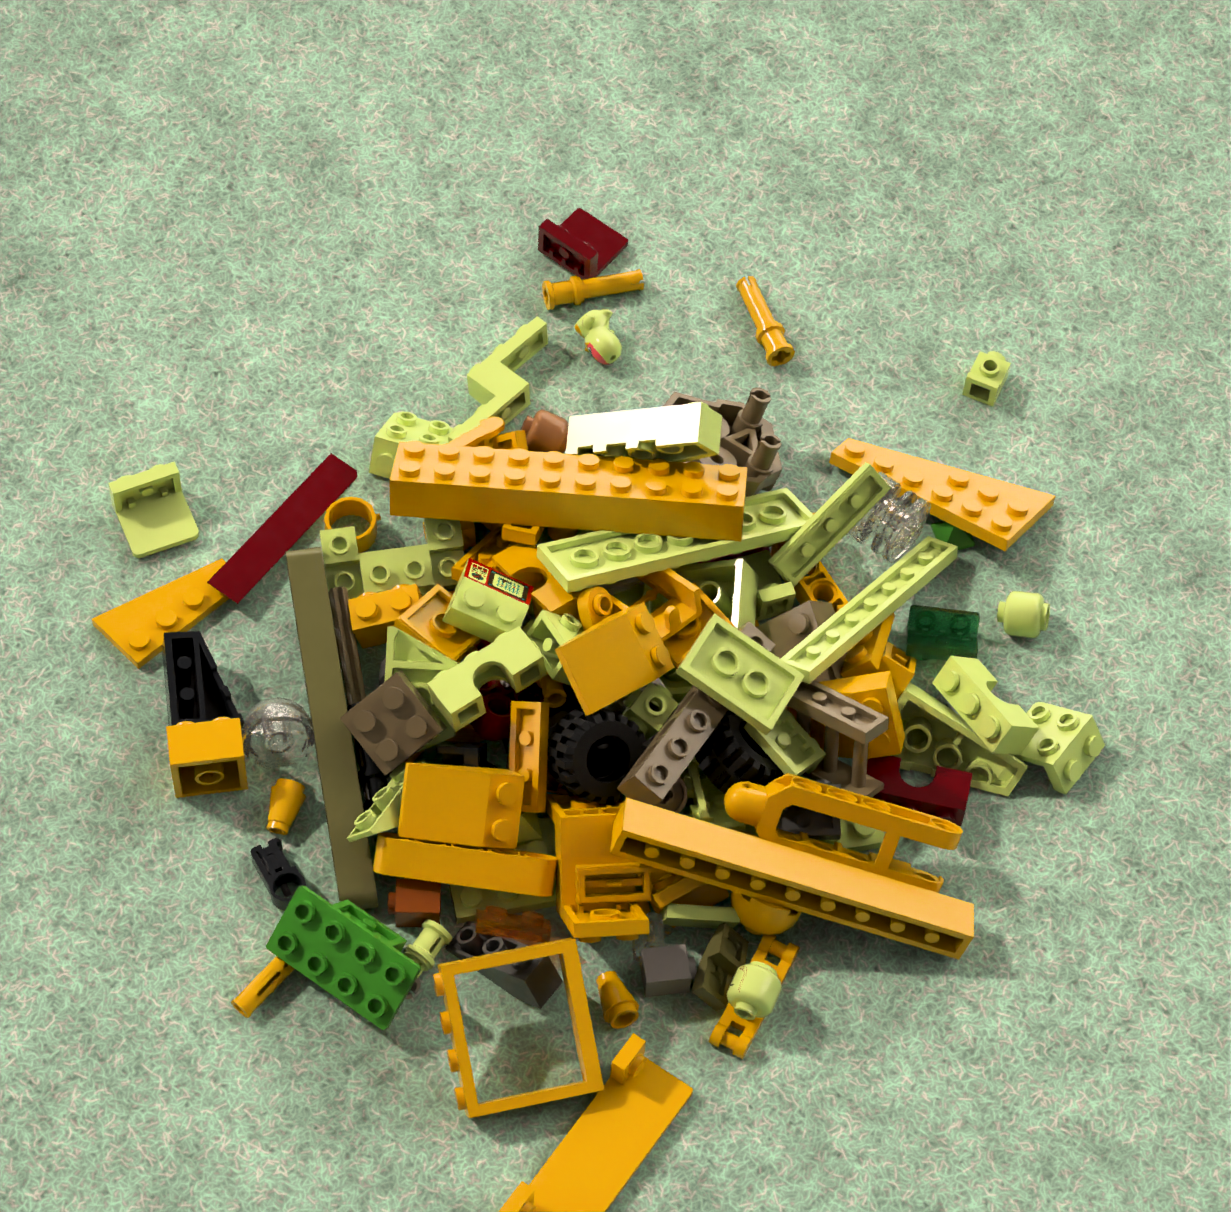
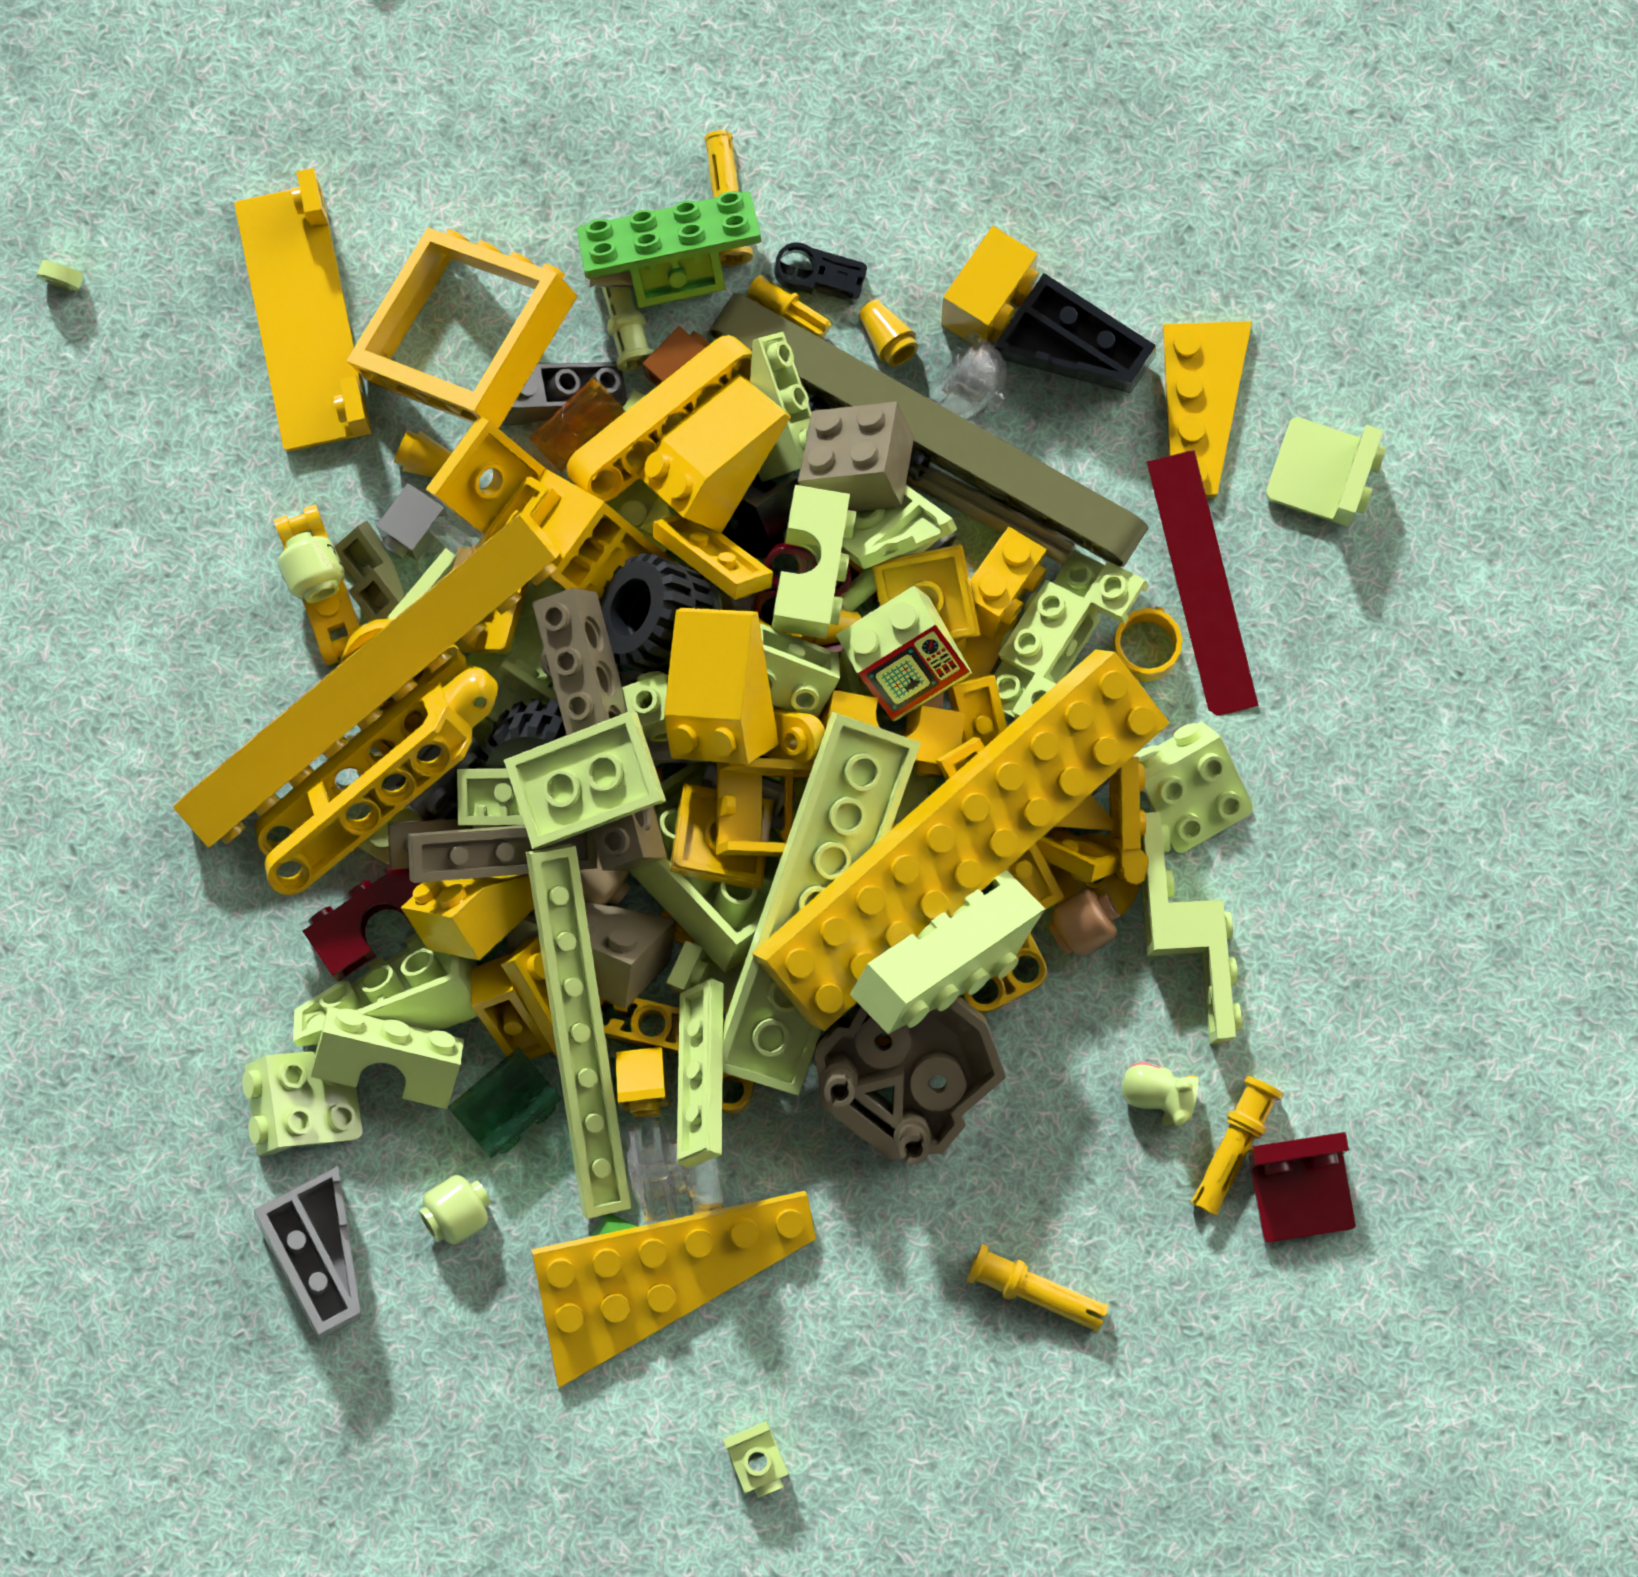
camera: 140 degrees right, 20 degrees up
(320, 870) = (787, 306): none -> yellow axle
(860, 565) = (642, 1081): none -> yellow slope
(1121, 662) = (314, 1251): none -> light grey wedge

